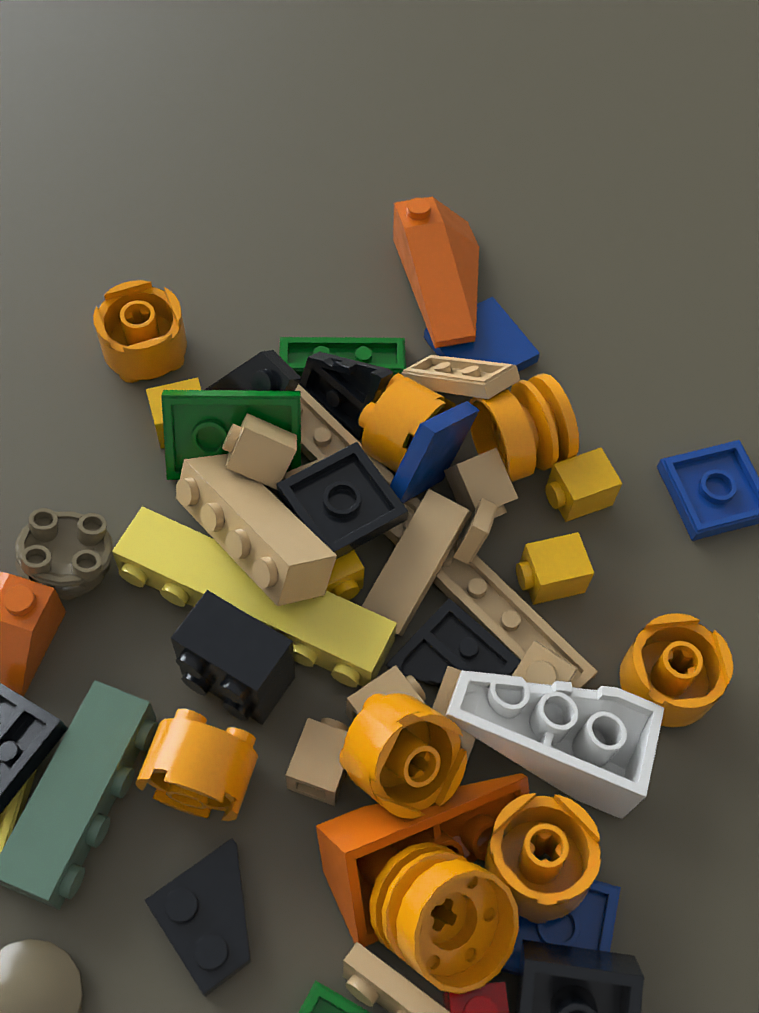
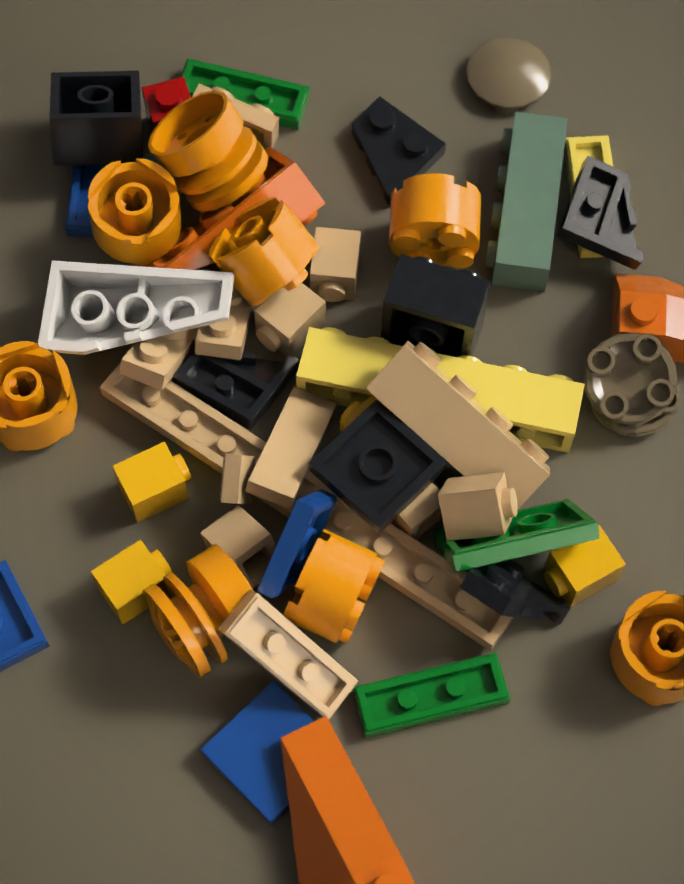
camera: 170 degrees right, 5 degrees up
(344, 387) = (402, 620): black wing -> none

